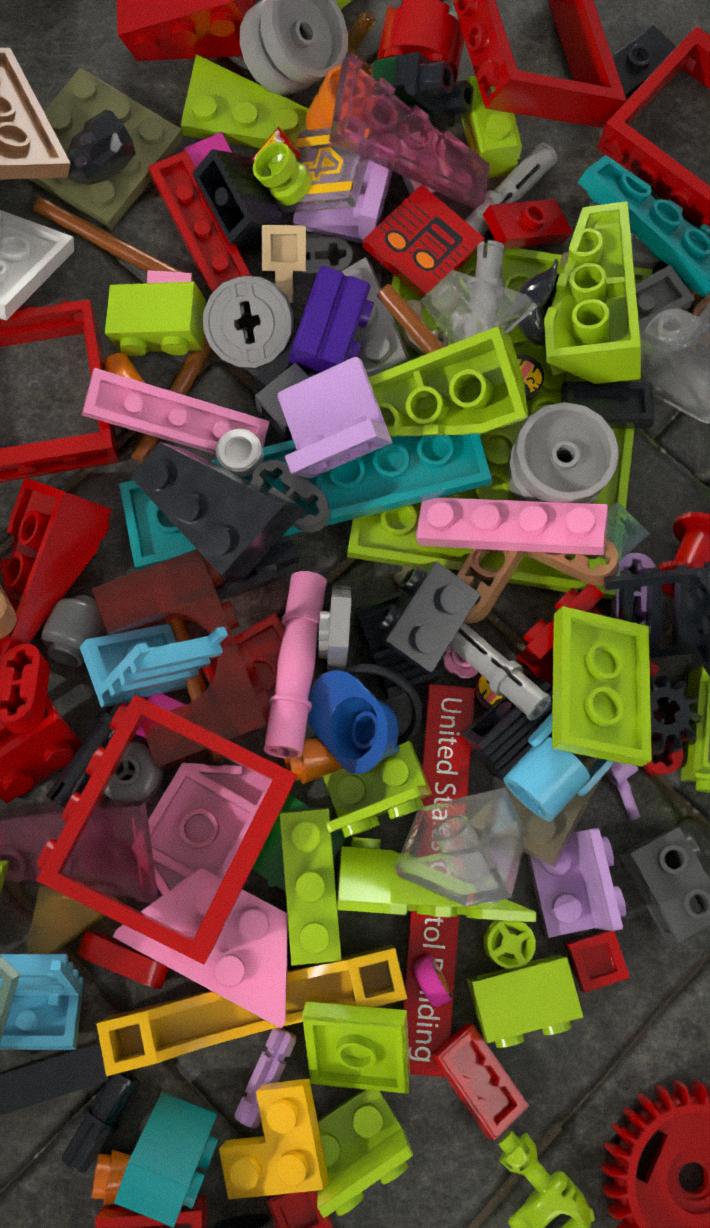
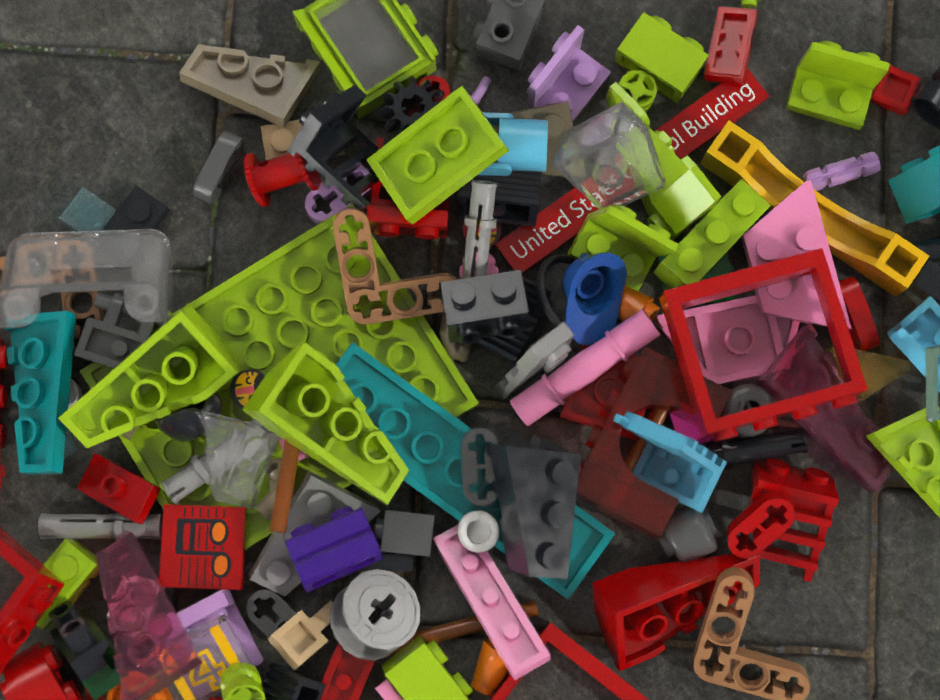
camera: 125 degrees left, 5 degrees up
(287, 1155) = (870, 121): yellow plate -> none
(332, 419) = (407, 479): lavender bracket -> none
(357, 1046) = (780, 128): lime plate -> none
(432, 981) = (702, 117): dark pink tile -> none
(513, 525) = (372, 302): bright pink plate -> none
(562, 456) = (281, 288): light grey wheel -> none
(597, 960) = (600, 32): red plate -> none
(619, 403) = (220, 314): black tile -> none
(623, 530) = (313, 234): clear light blue plate -> none

